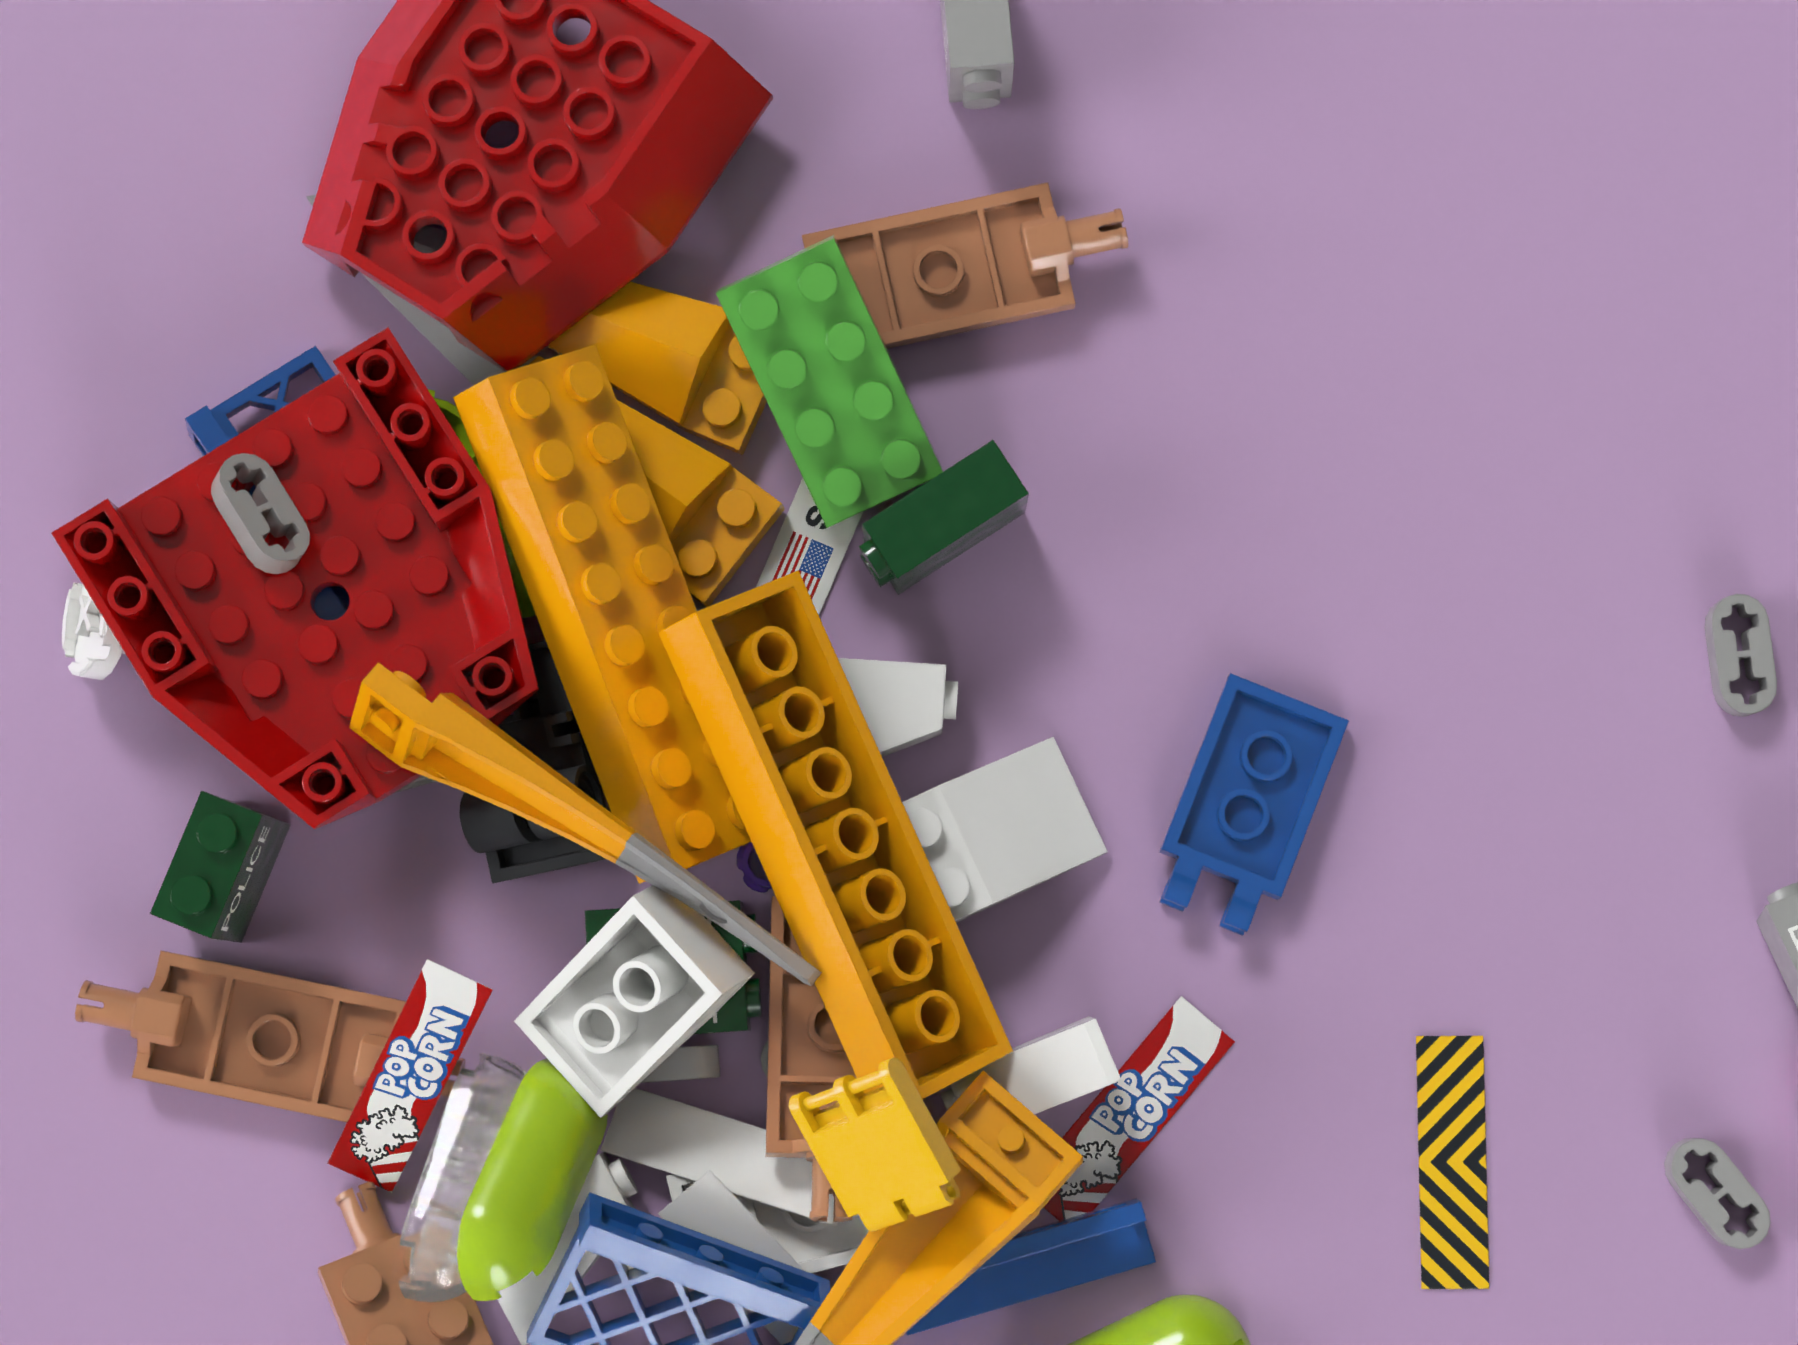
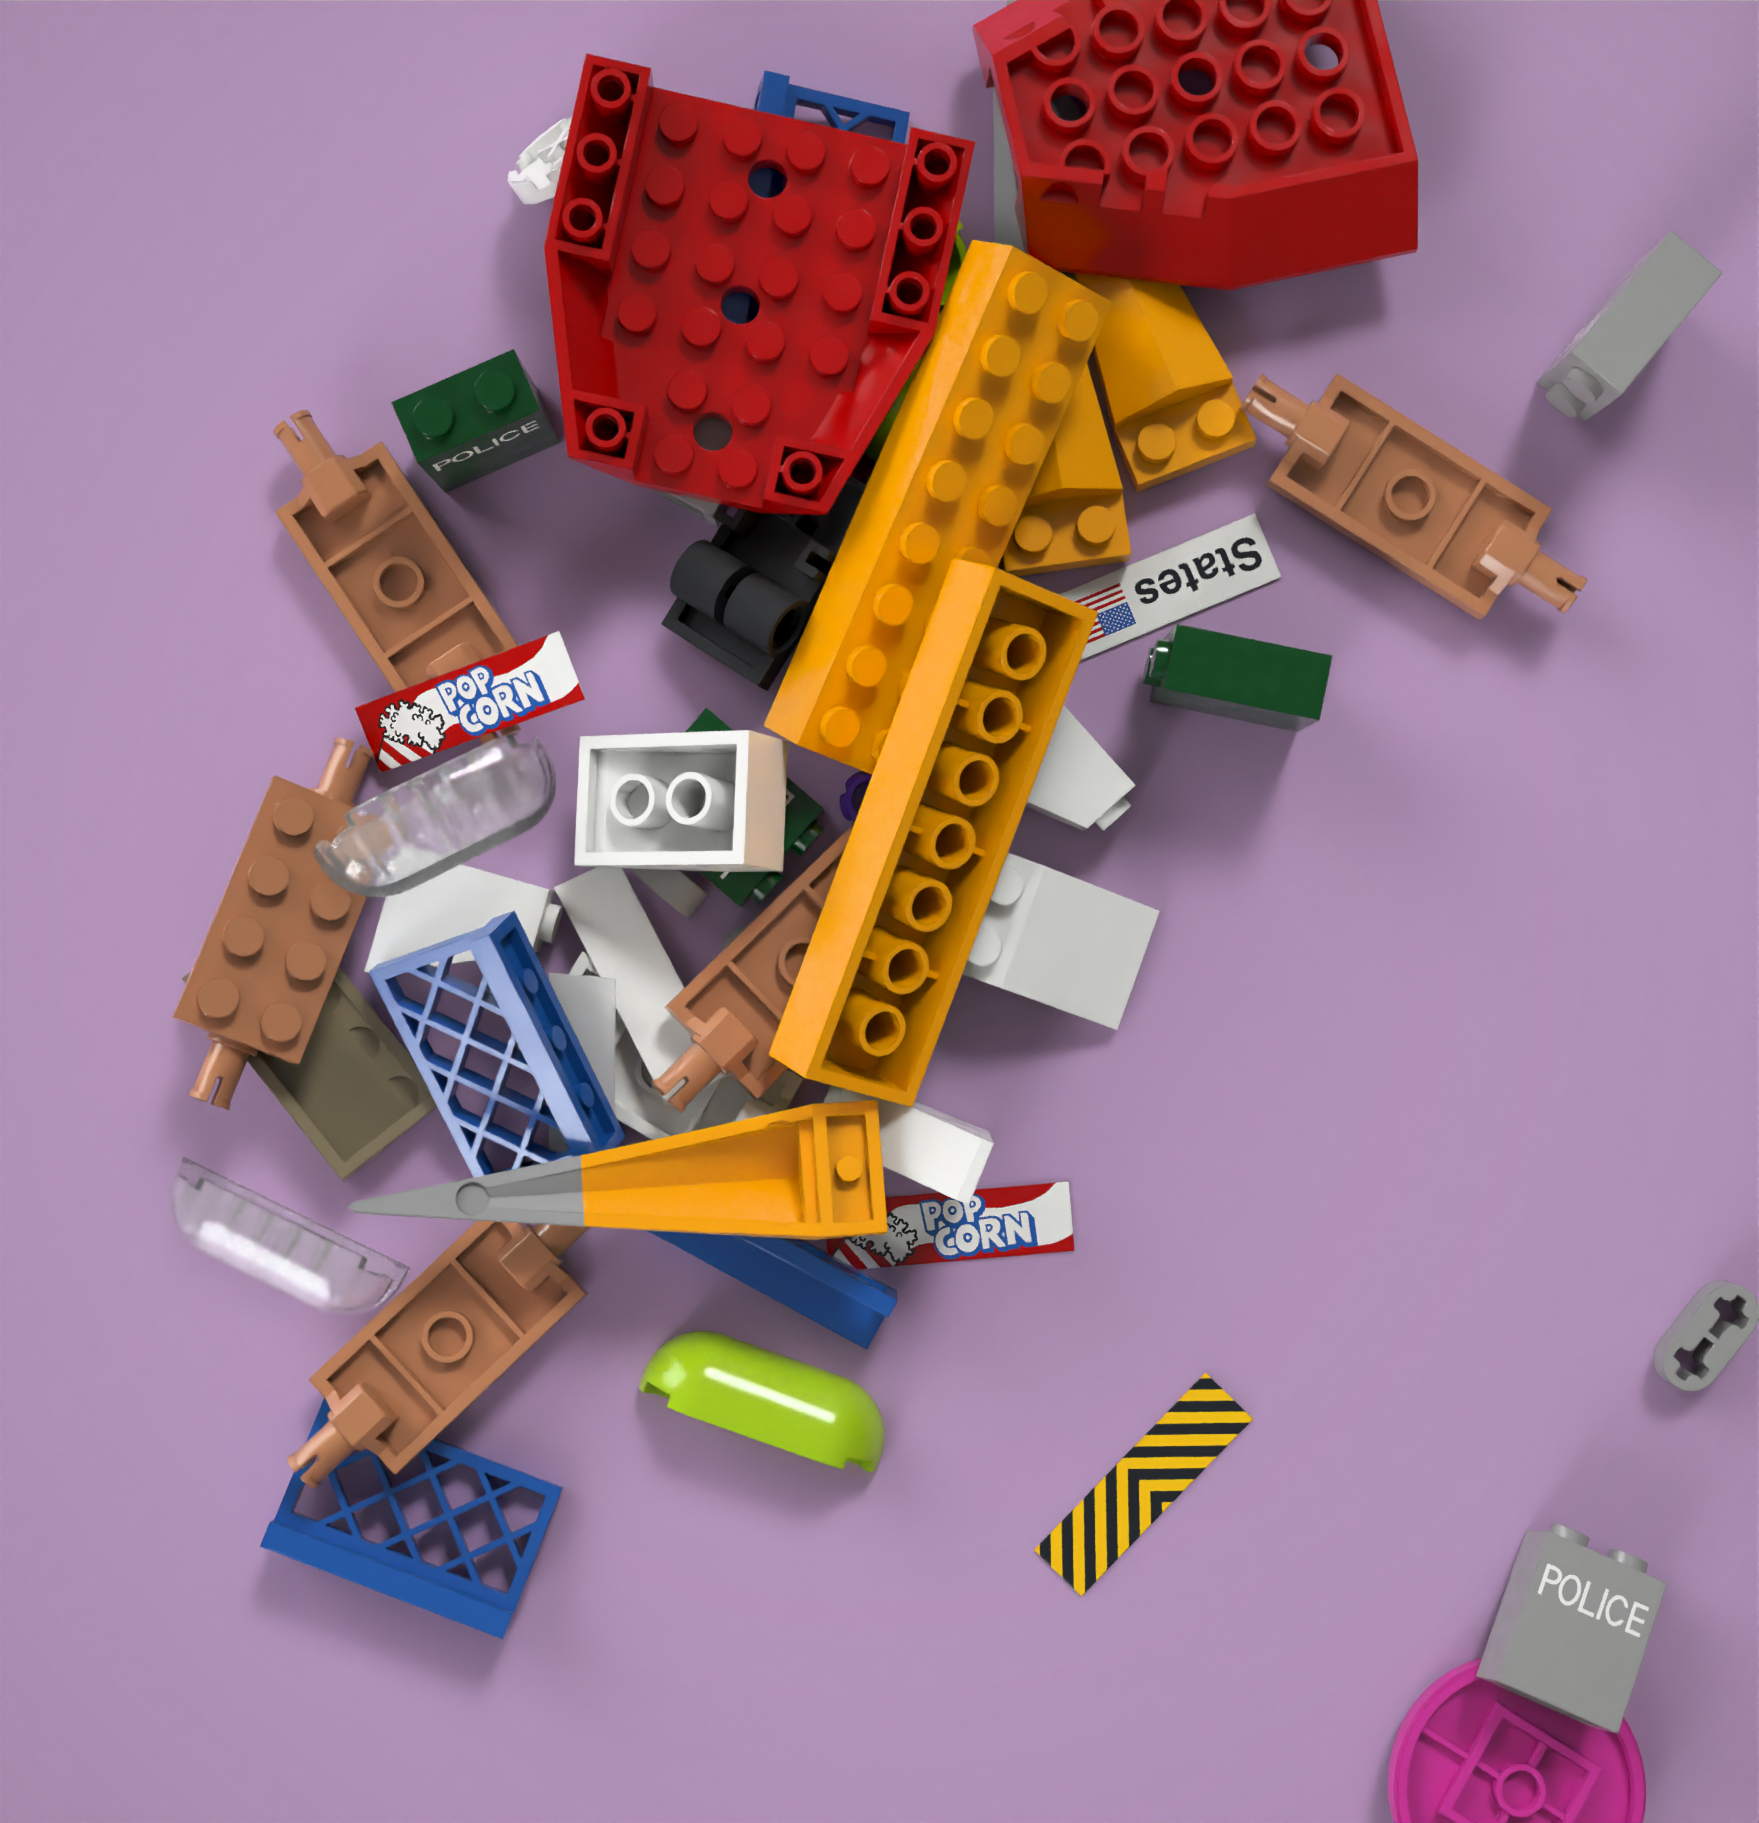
camera: 35 degrees right, 5 degrees up
(263, 512) = (744, 187): light grey beam -> none
(473, 755) = (733, 513): light orange plate -> none
(527, 1184) = (476, 861): lime brick -> none
(829, 381) = (1255, 497): bright green brick -> none
(878, 1146) = (749, 1083): yellow plate -> none
(1250, 797) = (1256, 1091): blue tile -> none
(1728, 1183) = (1323, 1691): light grey beam -> none

